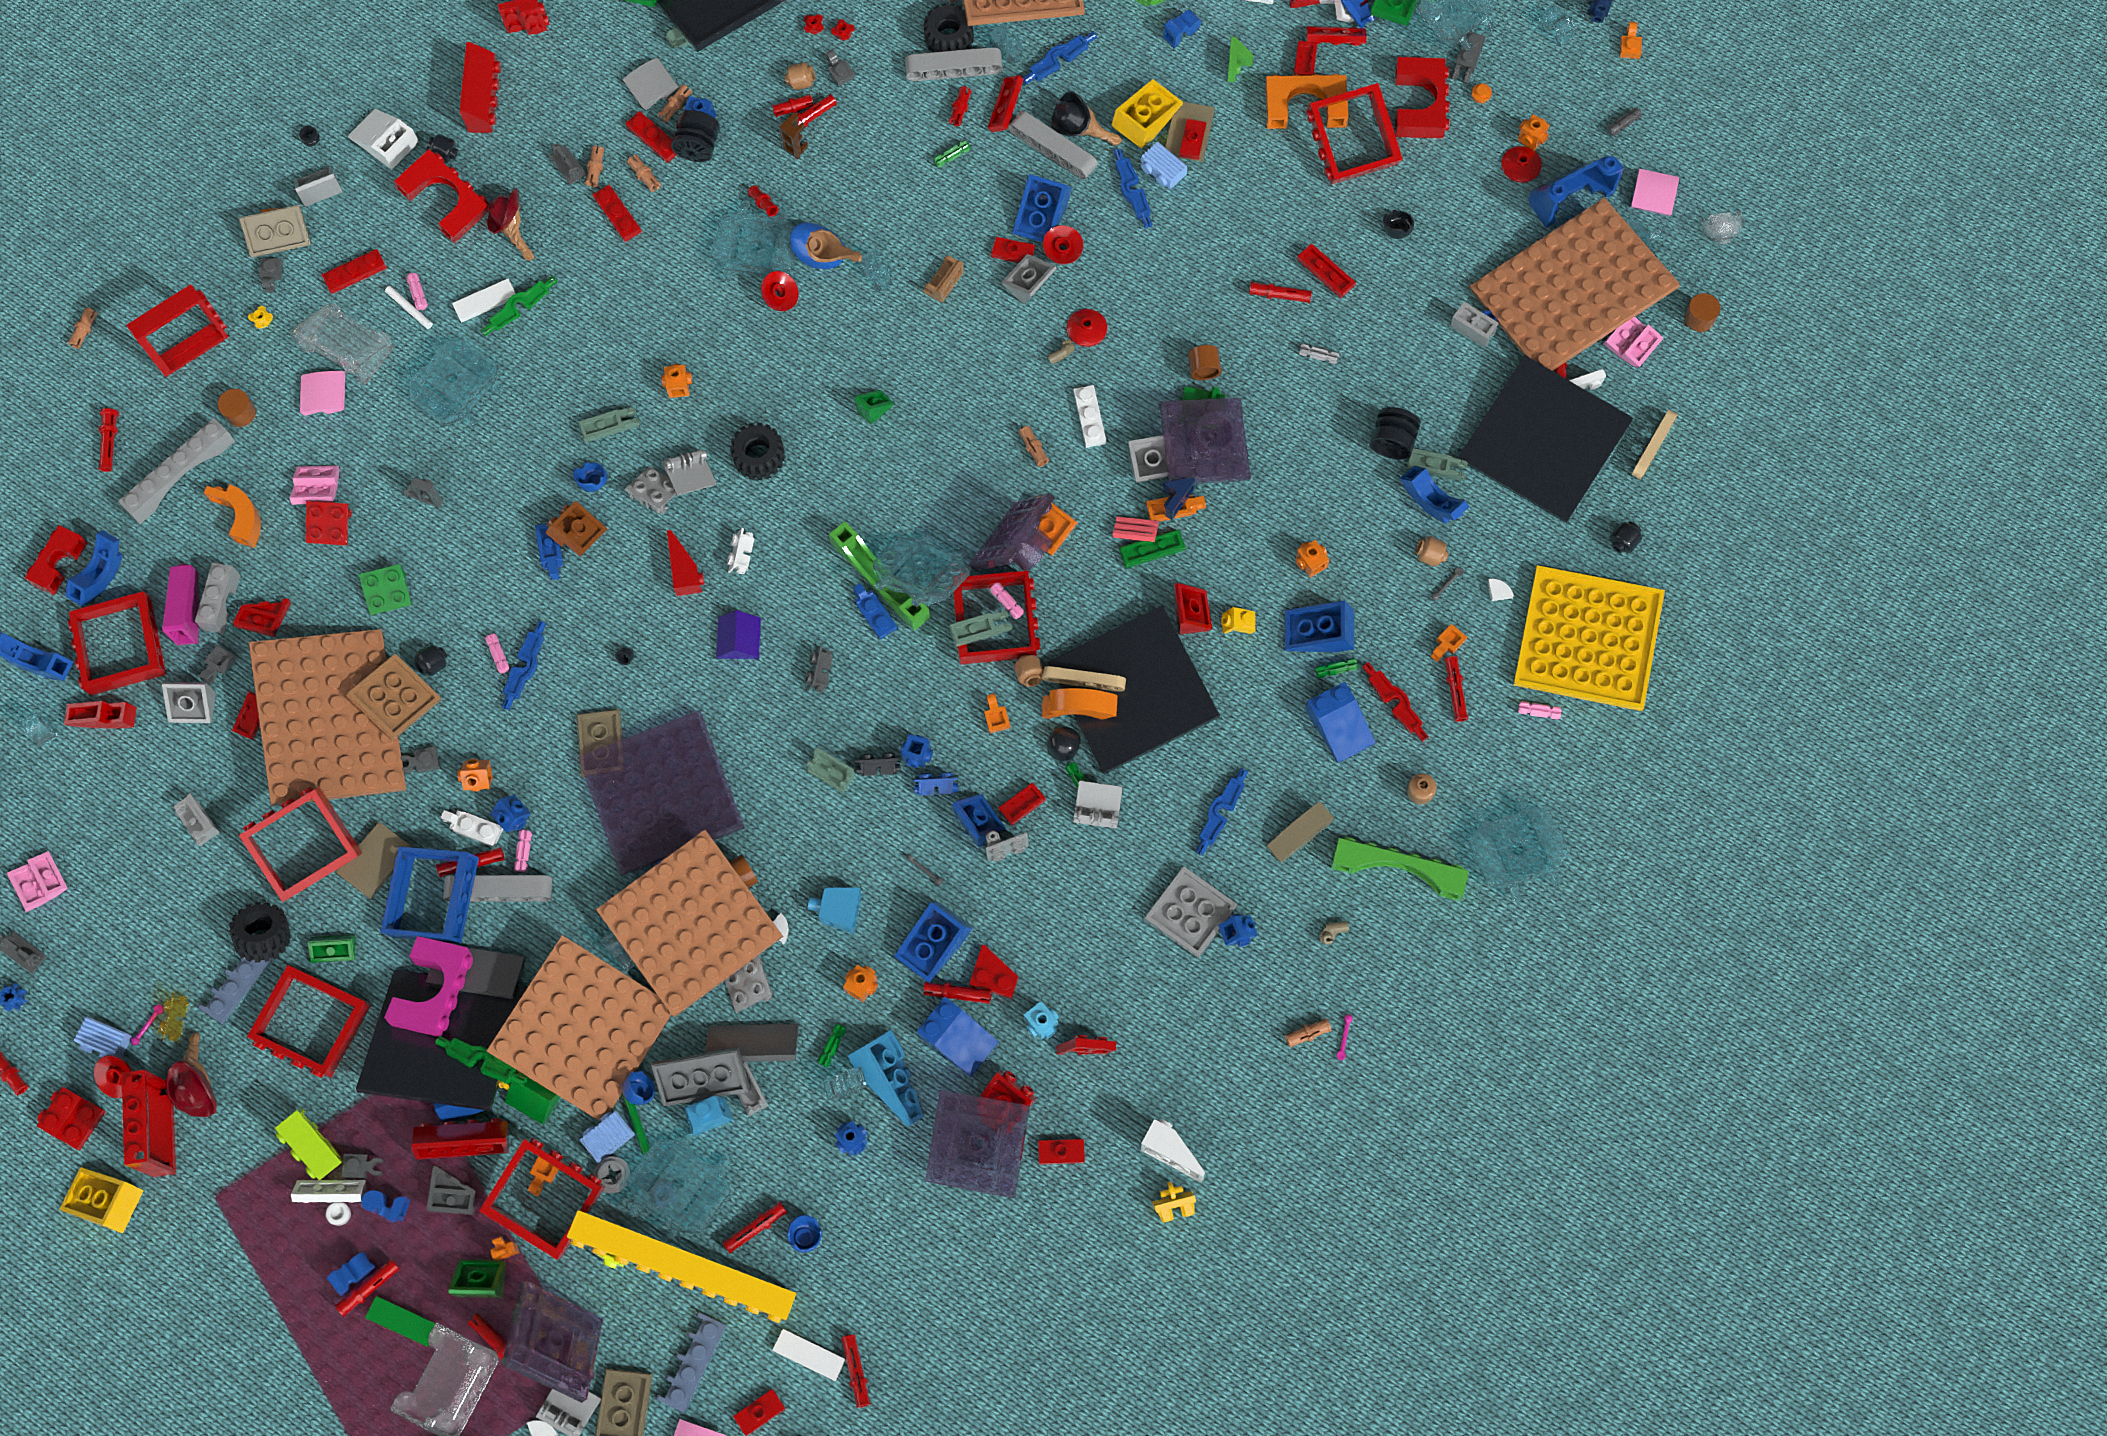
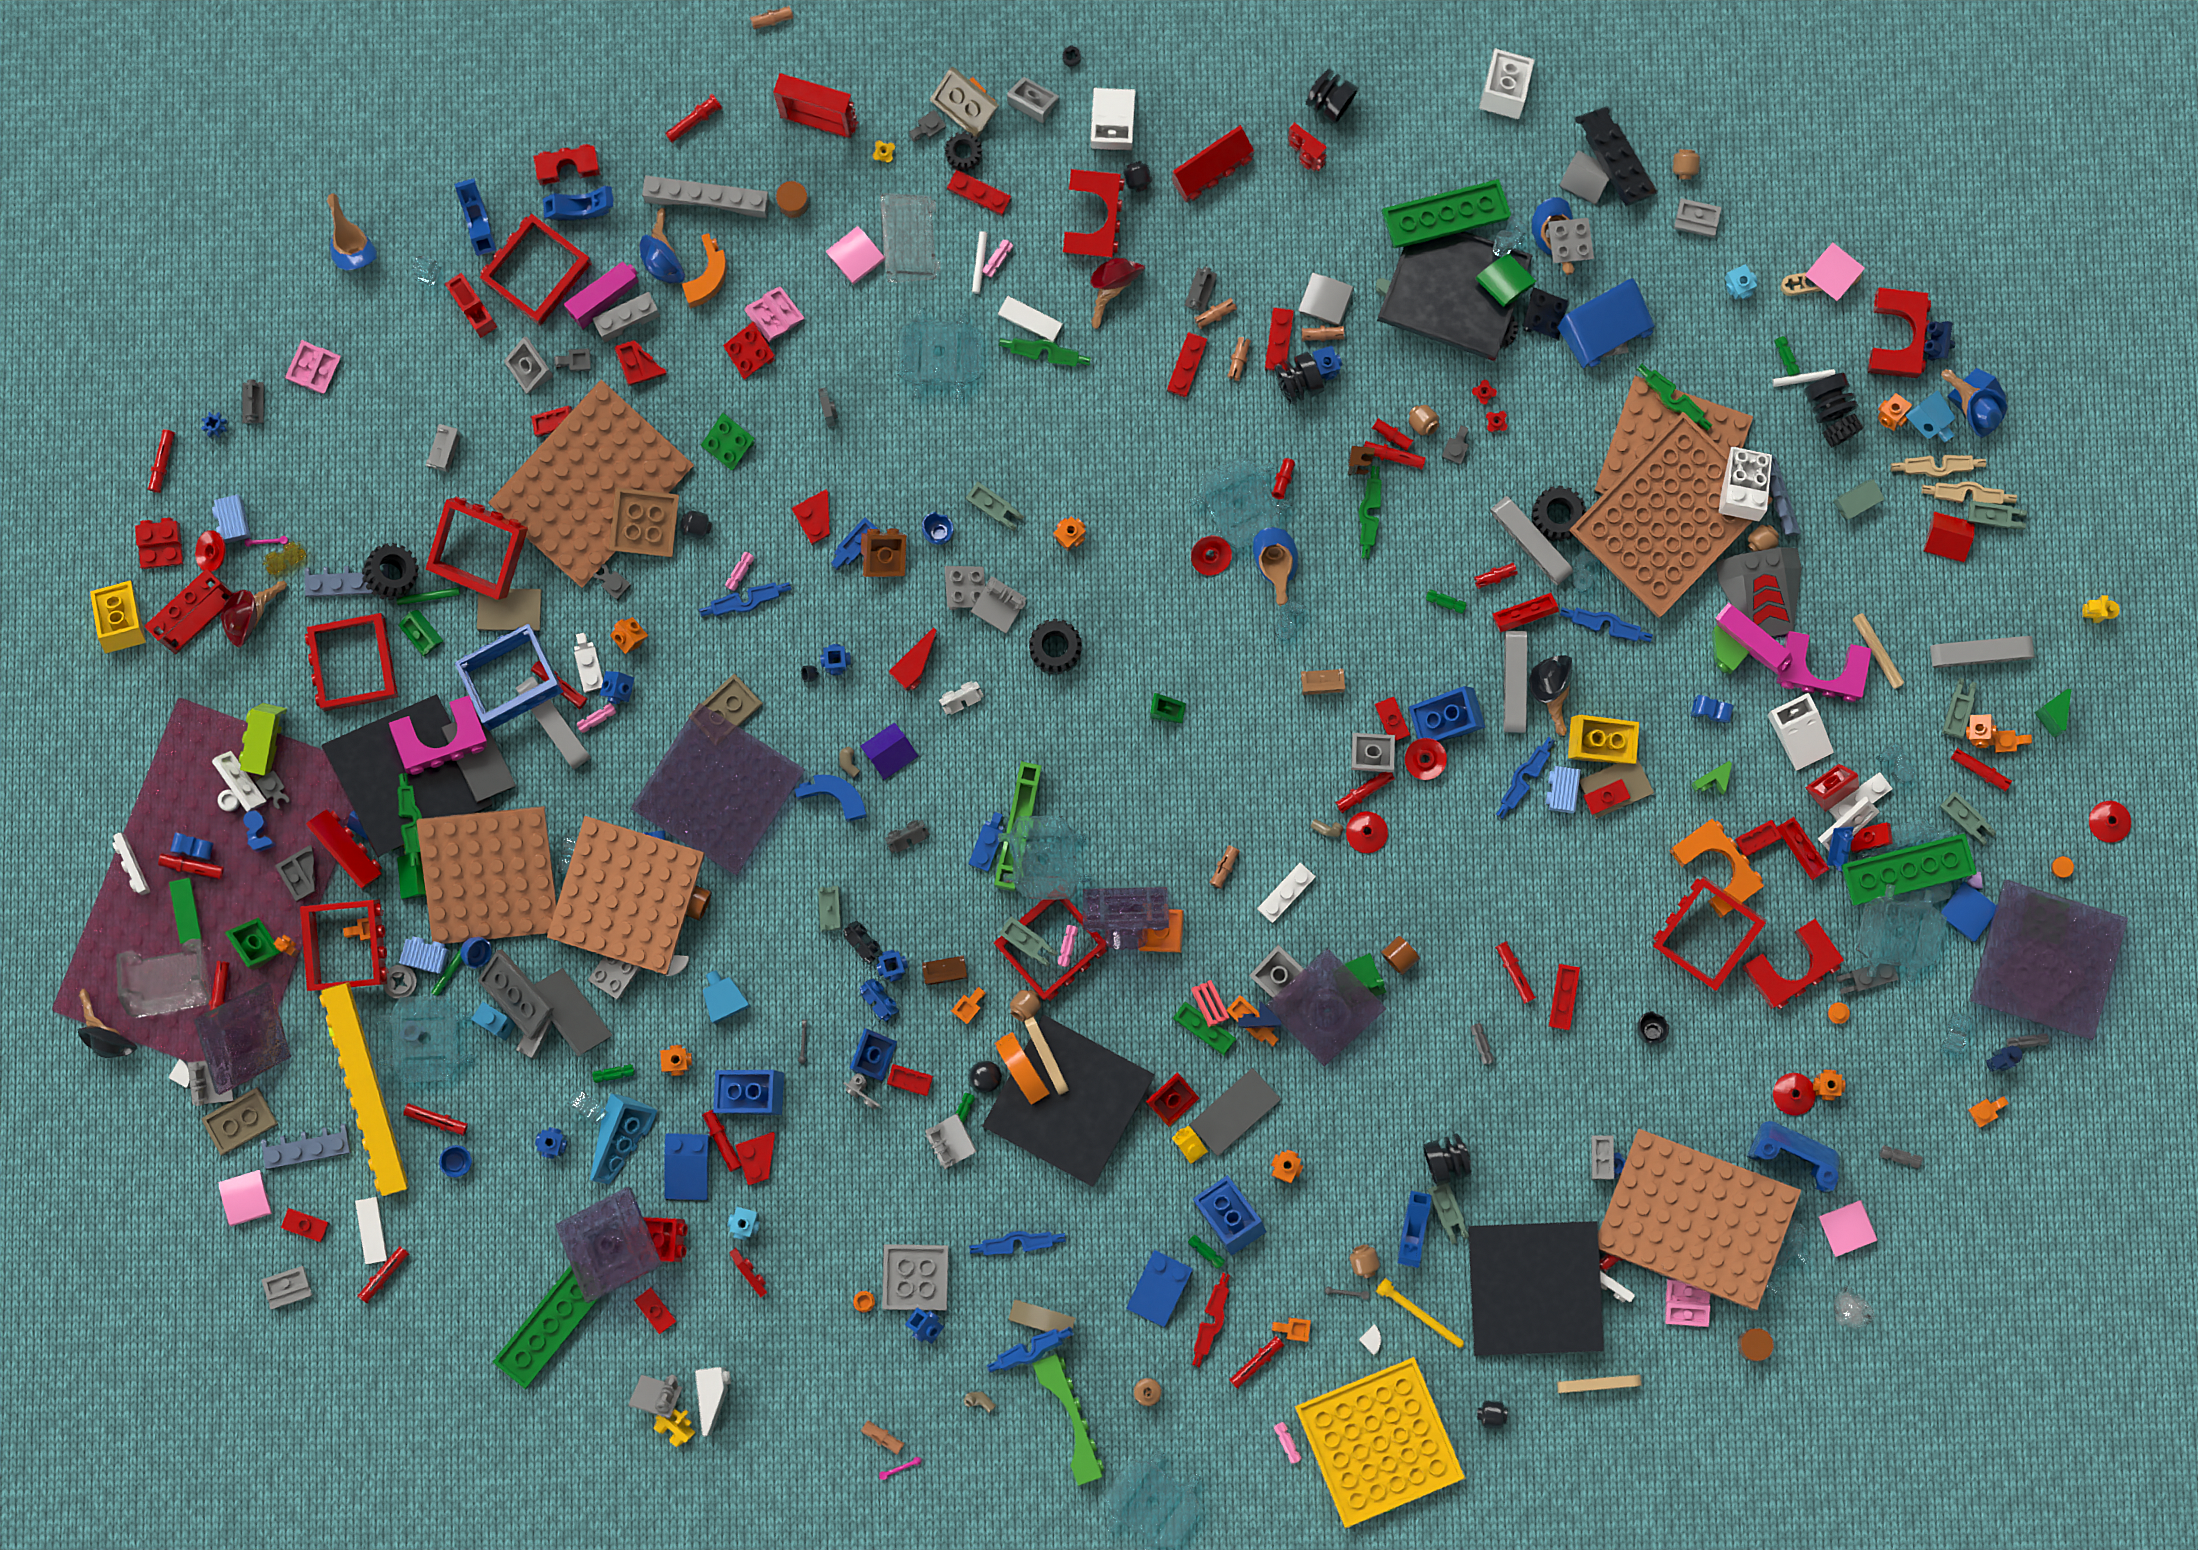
camera: 55 degrees right, 10 degrees up
(192, 537) = (659, 256): none -> blue hat
(307, 919) = (428, 596): none -> green bar
(312, 249) = (963, 139): none -> black tyre
(321, 1342) = (130, 864): none -> white plate
(502, 566) = (814, 516): none -> red wing
(630, 624) = (830, 653): none -> blue brick
(720, 676) = (846, 762): none -> dark tan arm
(738, 695) = (838, 788): none -> blue arch
(847, 167) = (1371, 501): none -> green piece
(952, 714) = (944, 970): none -> reddish brown hinge
(1008, 1257) = (544, 1330): none -> green plate
(1053, 311) = (1357, 795): none -> red pin
(1137, 1199) = (656, 1395): none -> light grey hinge
(1180, 969) = (864, 1301): none -> orange plate
(1237, 569) = (1234, 1112): none -> dark grey tile
(1322, 844) = (1020, 1354): none -> blue piece
(1465, 550) = (1386, 1289): none -> yellow piece

